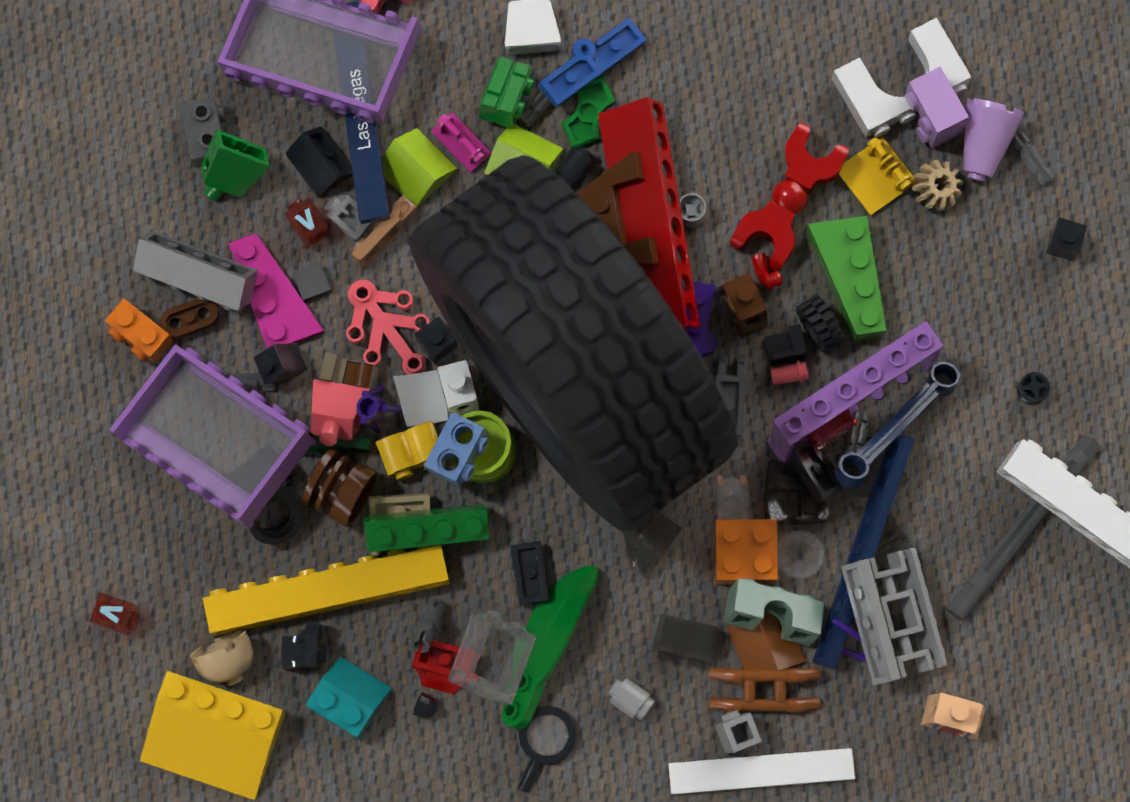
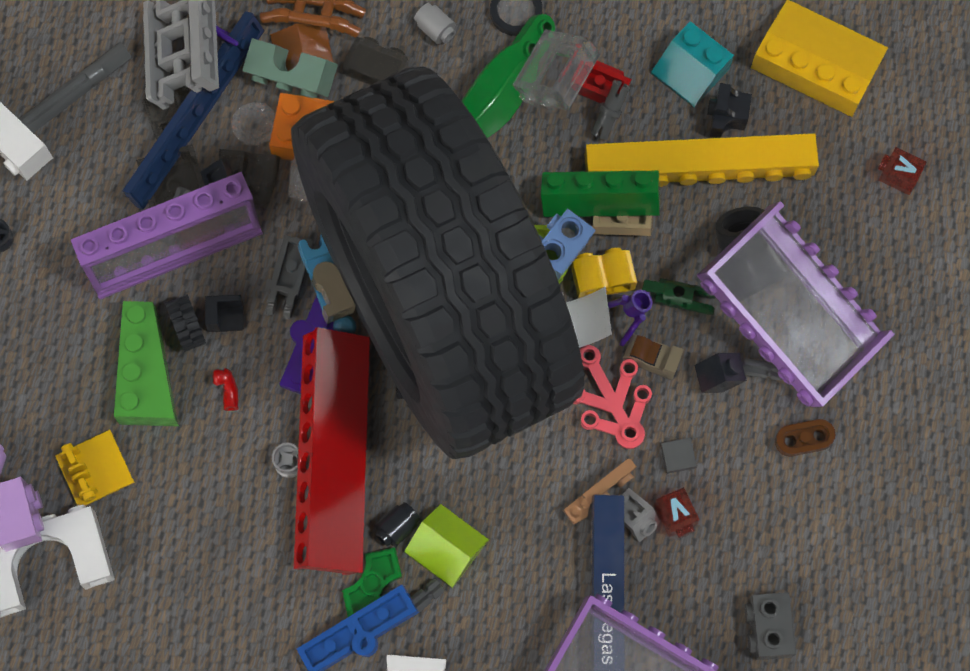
camera: 175 degrees left, 5 degrees down
(139, 331) = (858, 428): orange brick -> none
(195, 271) = (796, 475): brick -> none
(225, 658) = (805, 113): tan cylinder -> none
(232, 165) = (745, 578): green torso -> none
(275, 302) = (720, 447): dark pink wing -> none
(319, 160) = (654, 577): black panel -> none
(335, 411) = (672, 315): coral torso -> none
(335, 485) = (677, 243): reddish brown wheel -> none
(416, 166) = (556, 555): lime slope -> none
(425, 706) = (623, 49): black hinge -> none
(460, 141) = (507, 573): dark pink hinge -> none
(505, 92) = (452, 613): green brick -> none
(530, 573) = (509, 143): black plate -> none
(604, 200) = (384, 458): reddish brown wing -> none
(744, 304) = (256, 358): reddish brown torso -> none
(789, 197) = (185, 456): red piece -> none
(789, 373) = (226, 287): coral pin -> none
(897, 424) = (150, 195): dark blue piece -> none
(927, 187) = (36, 443): tan gear -> none

